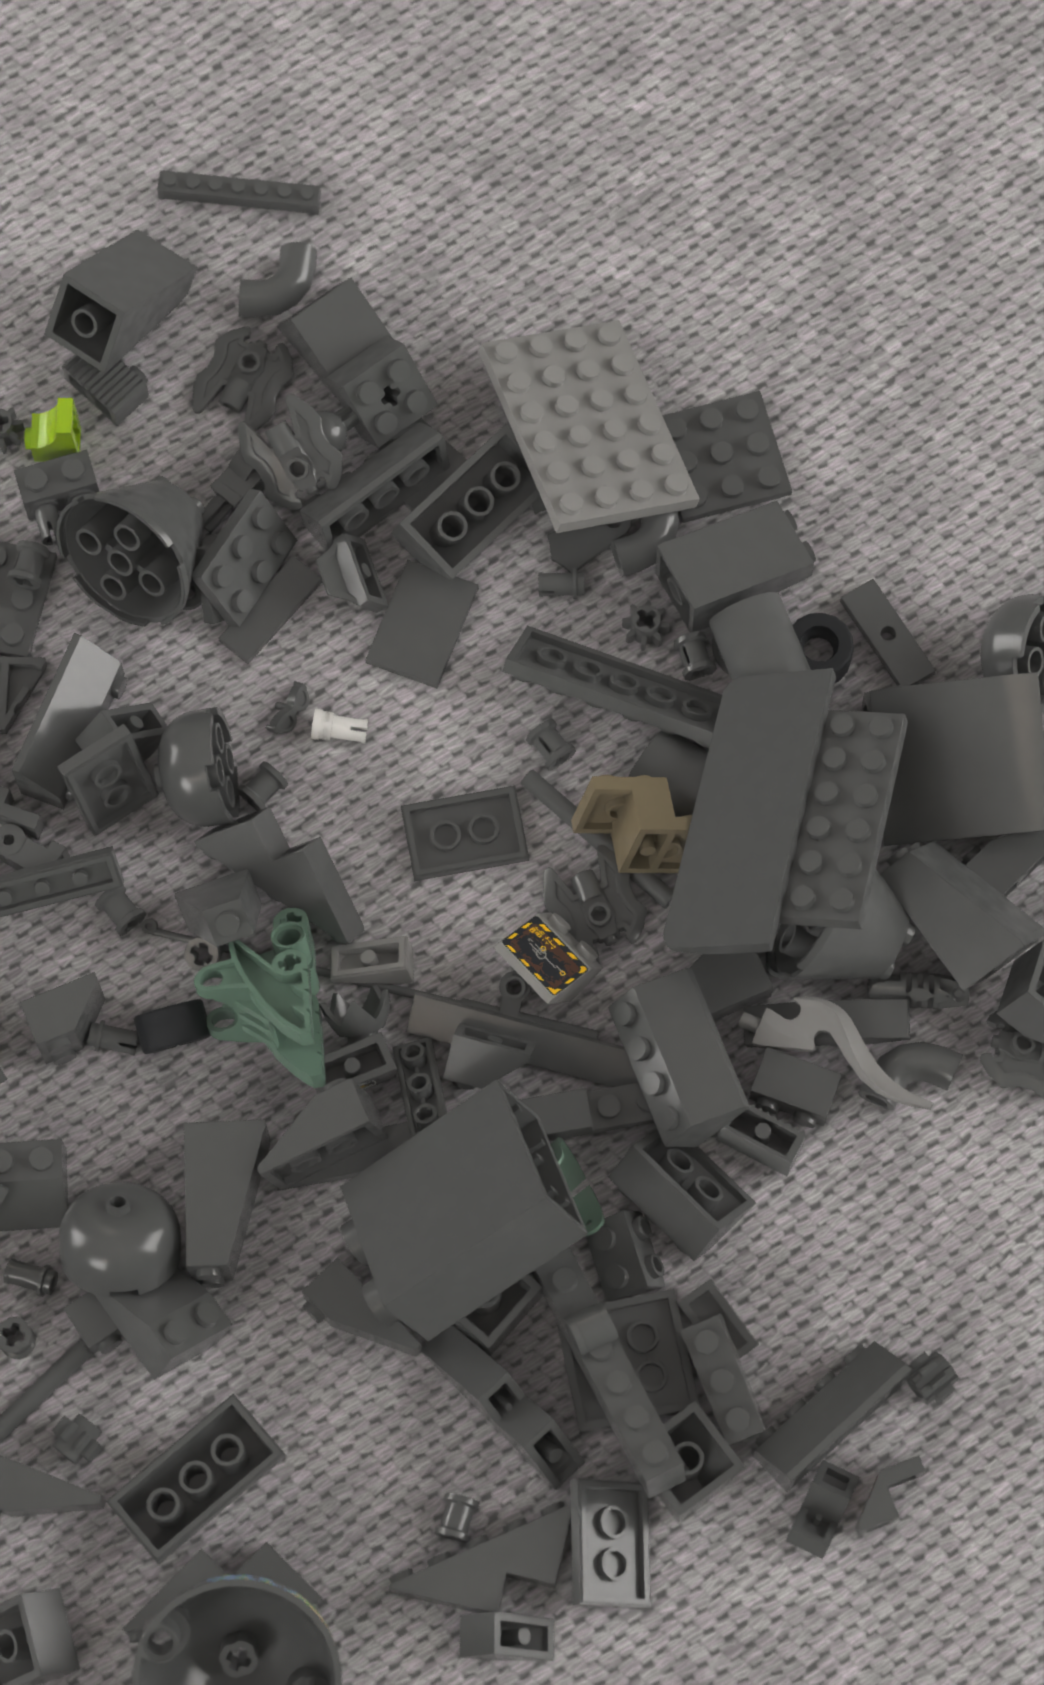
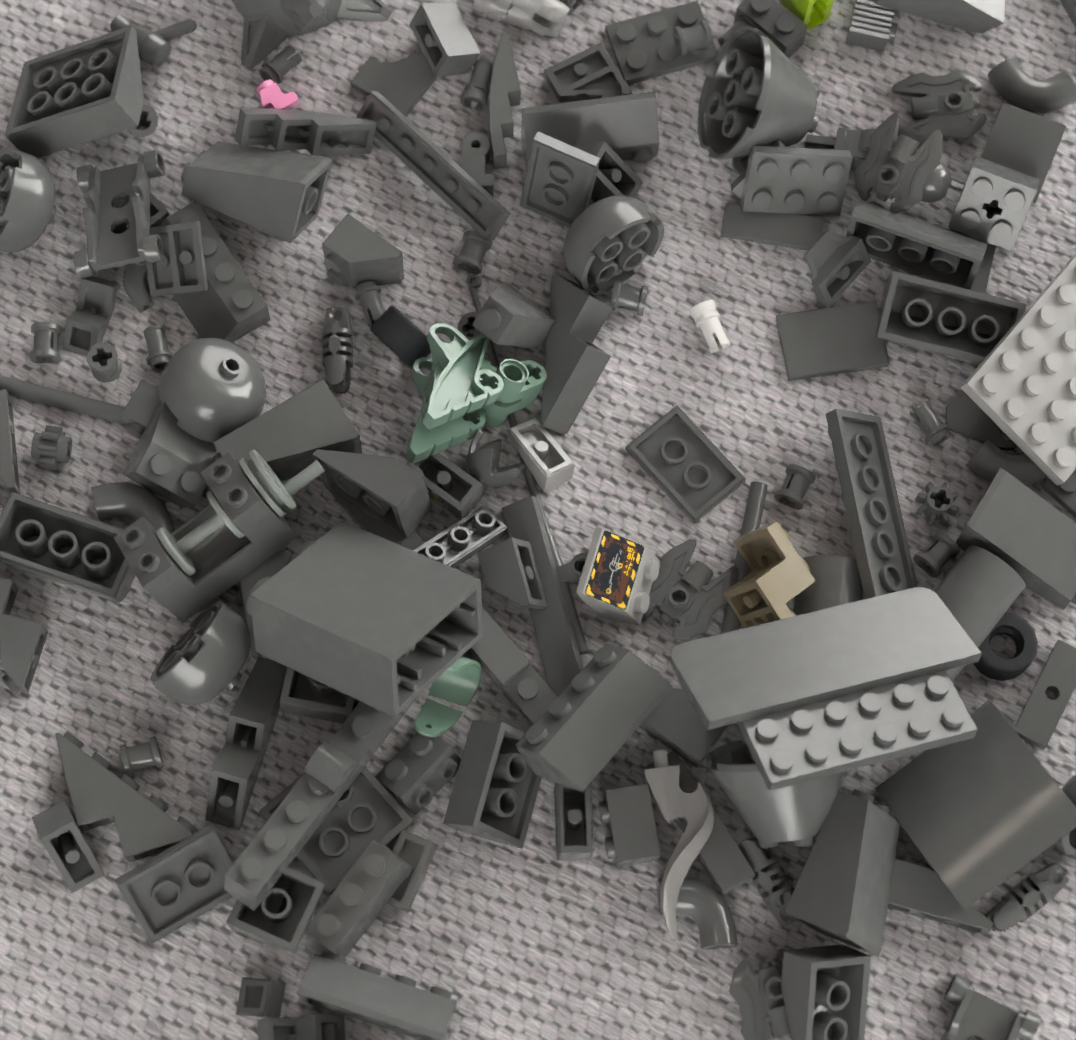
camera: 55 degrees right, 0 degrees up
(141, 1097) = (338, 348): none -> dark grey hinge
(189, 1384) = (131, 501): none -> dark grey cylinder
(286, 718) = (693, 285): dark grey piece -> none
(286, 1314) = (220, 542): none -> dark grey piece
(399, 1394) = (205, 657): none -> dark grey cylinder
(764, 1528) = (264, 998): none -> dark grey slope

